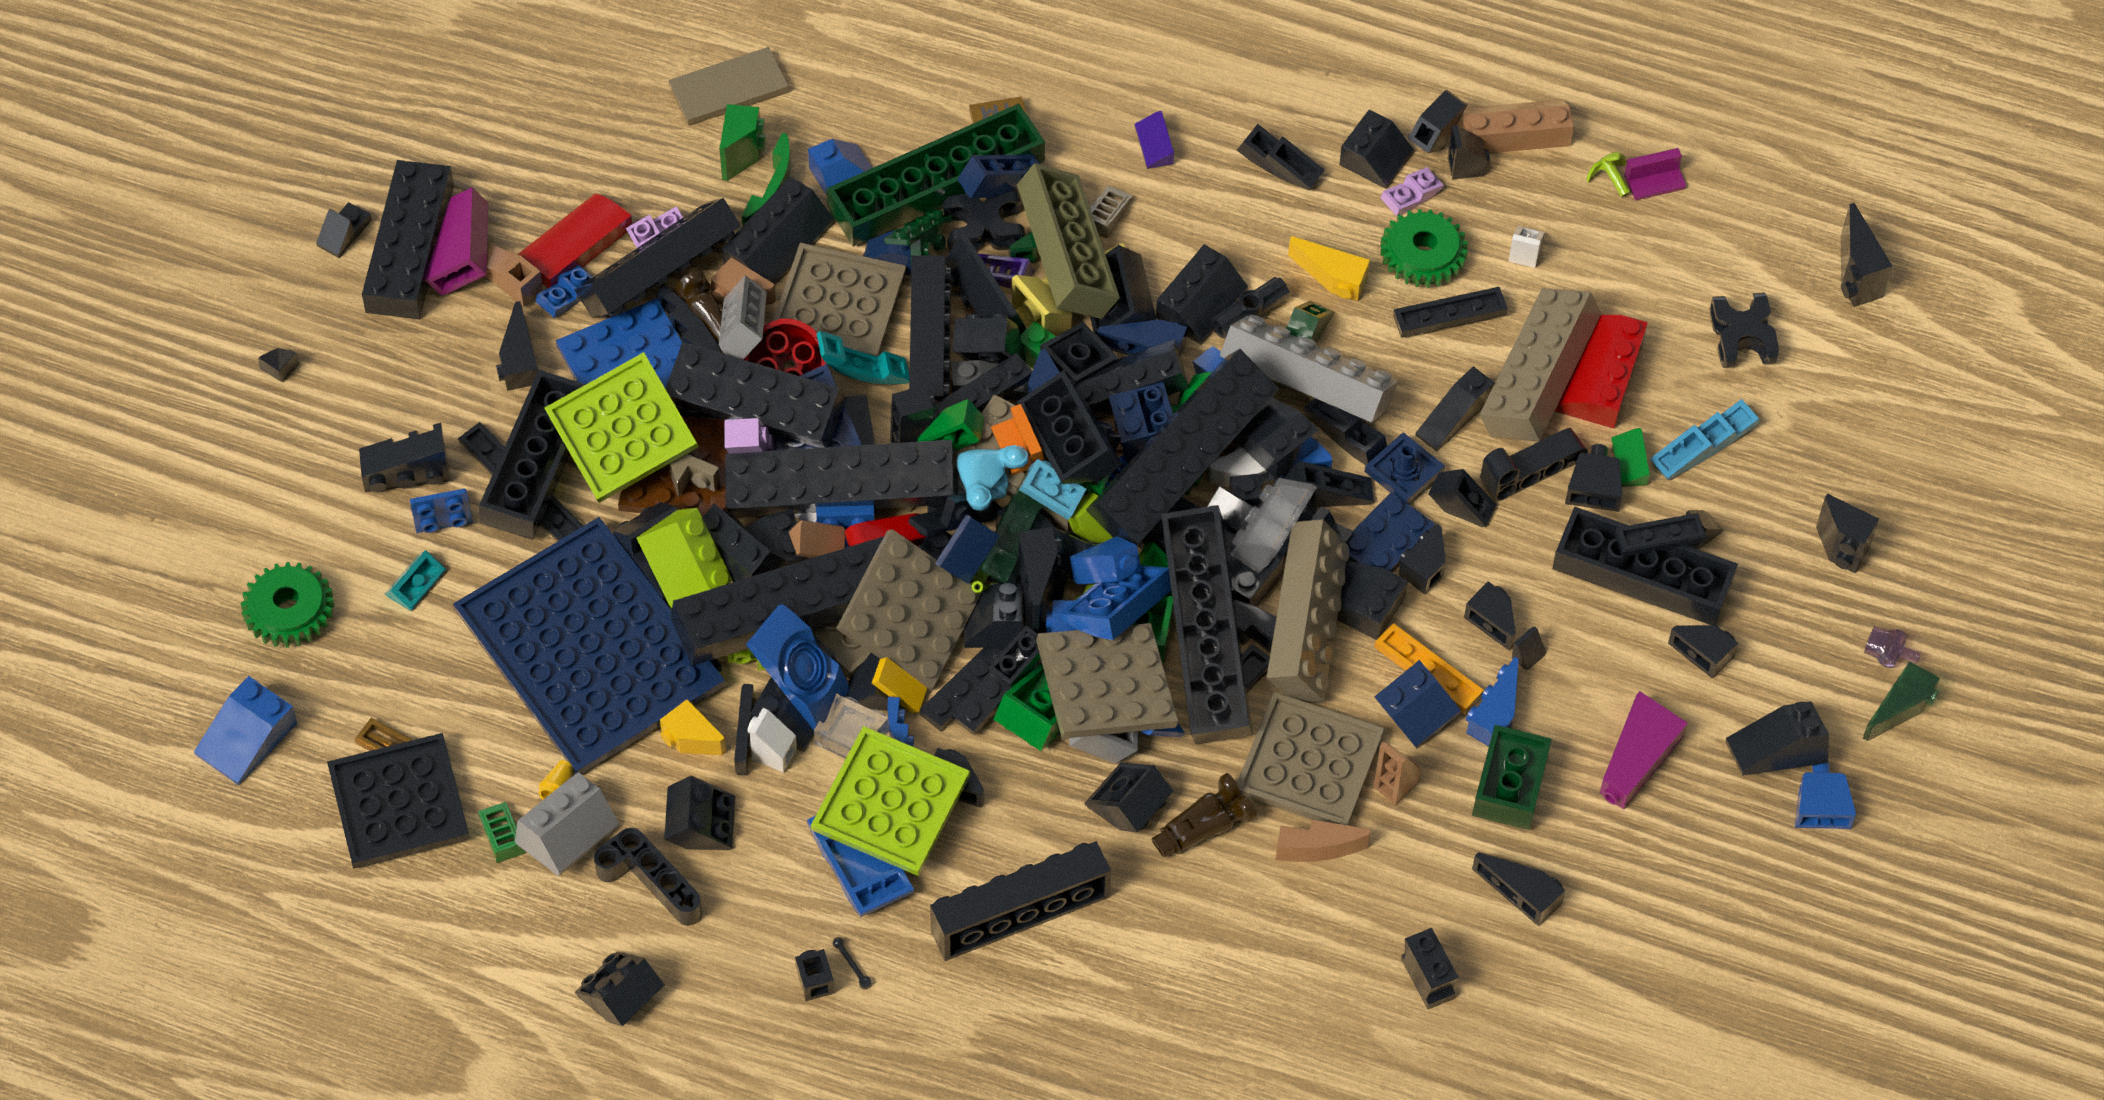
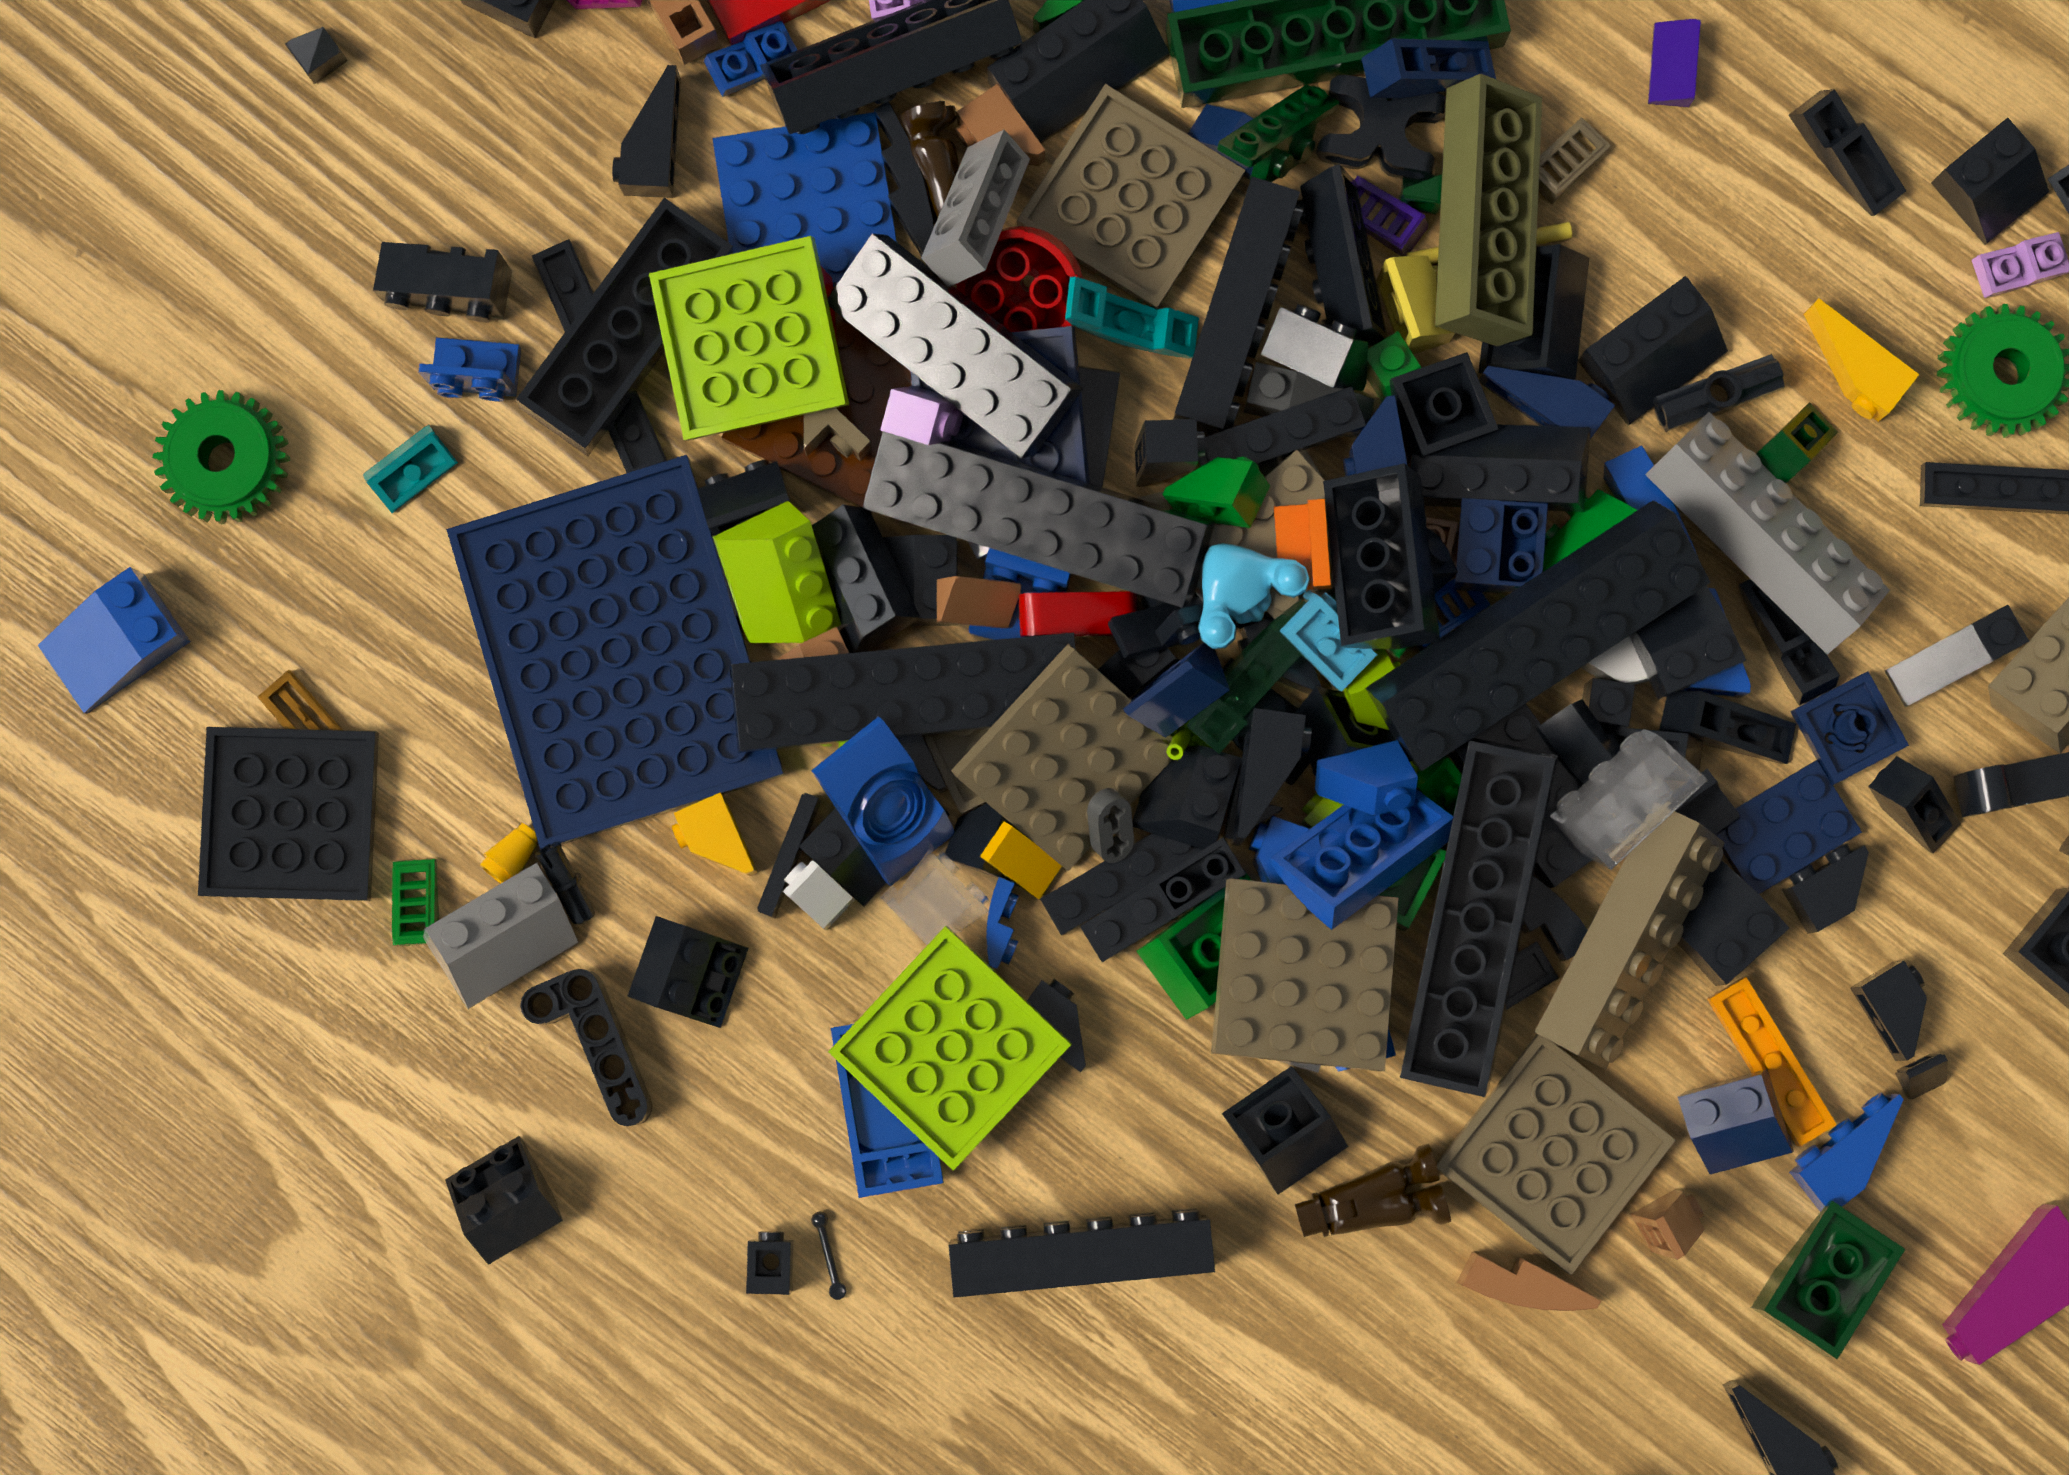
camera: 20 degrees right, 25 degrees up
(613, 798) = (565, 883): none -> black axle
(950, 646) = (1102, 828): none -> dark grey beam

